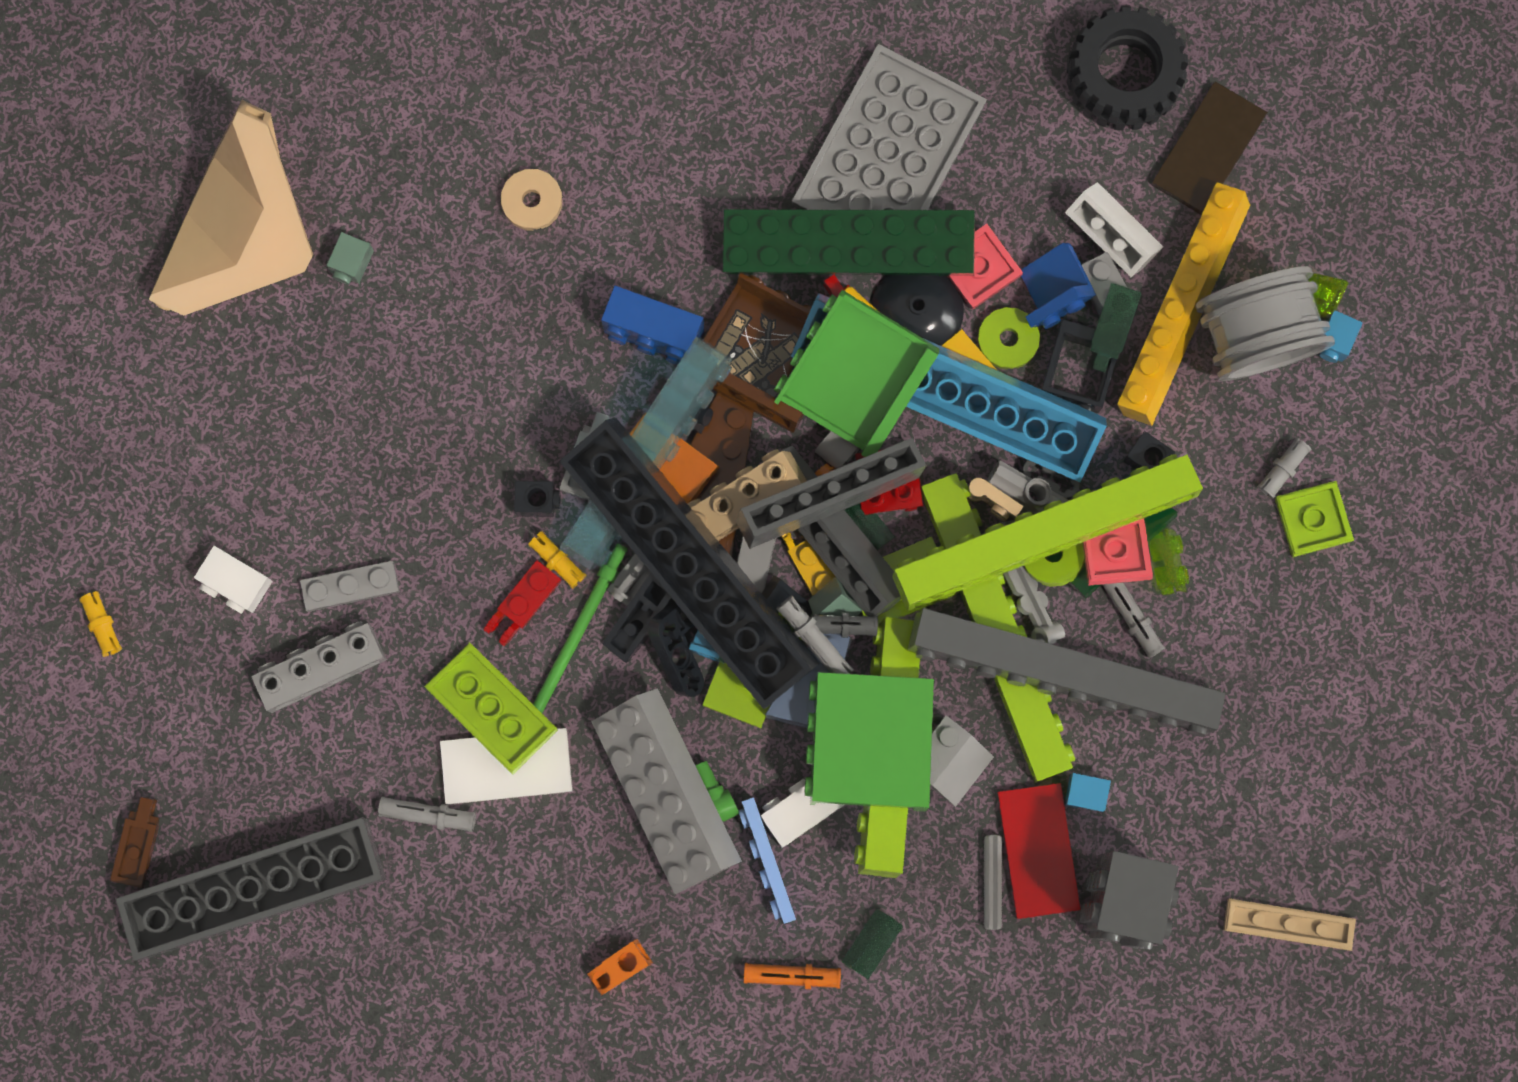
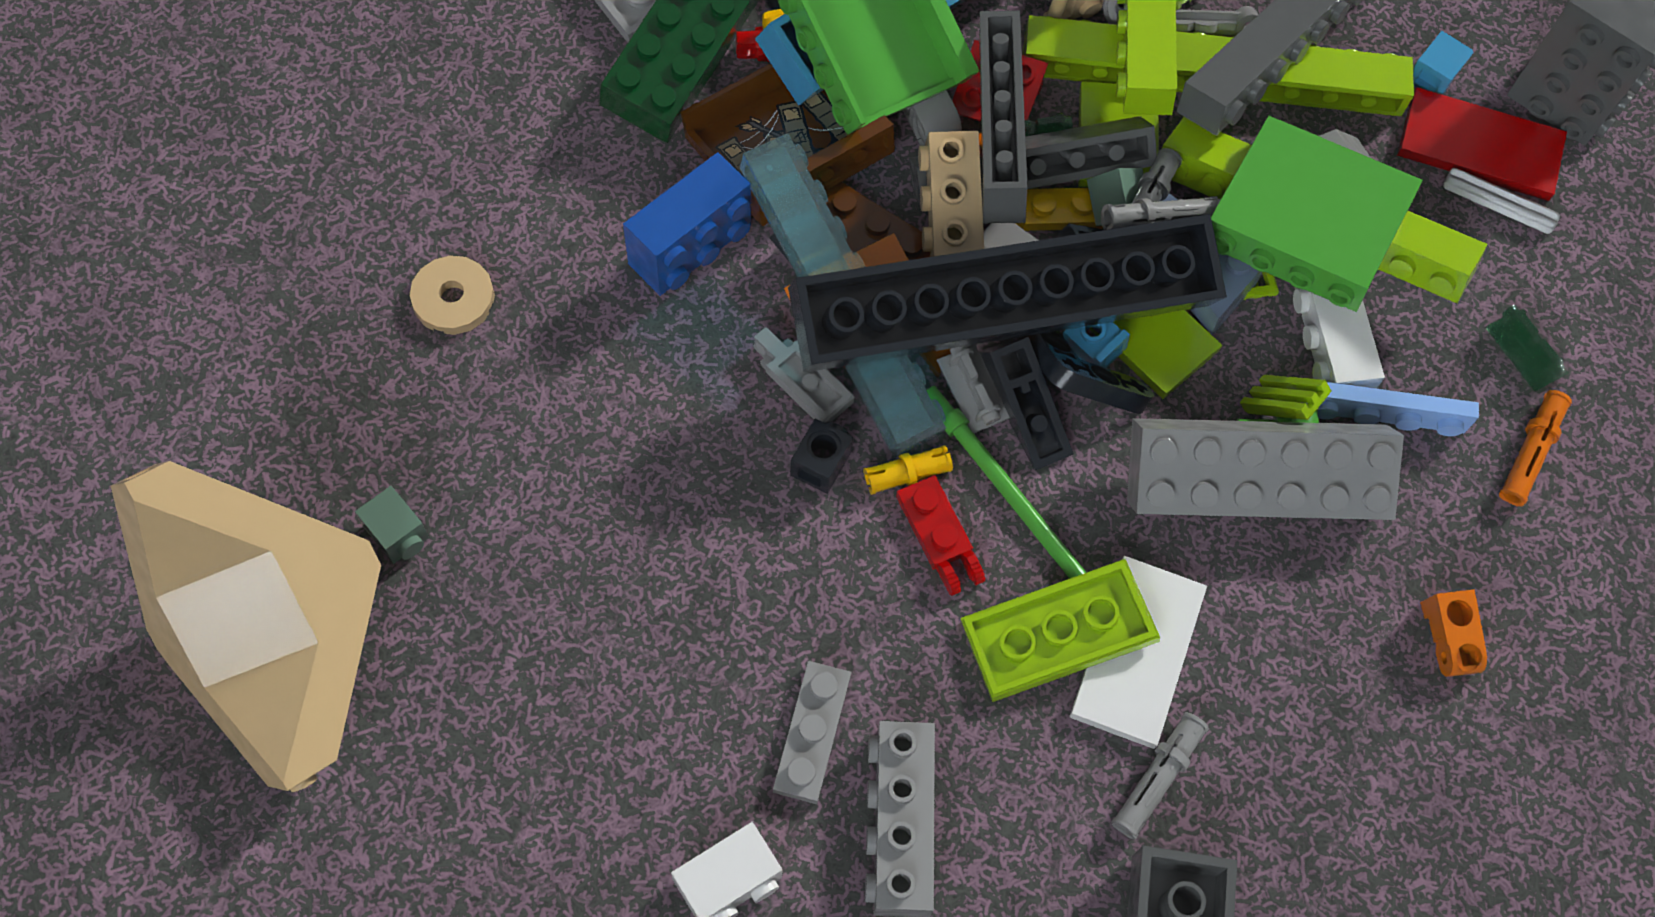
camera: 70 degrees left, 15 degrees down
(736, 772) = (1289, 392): none -> lime tile

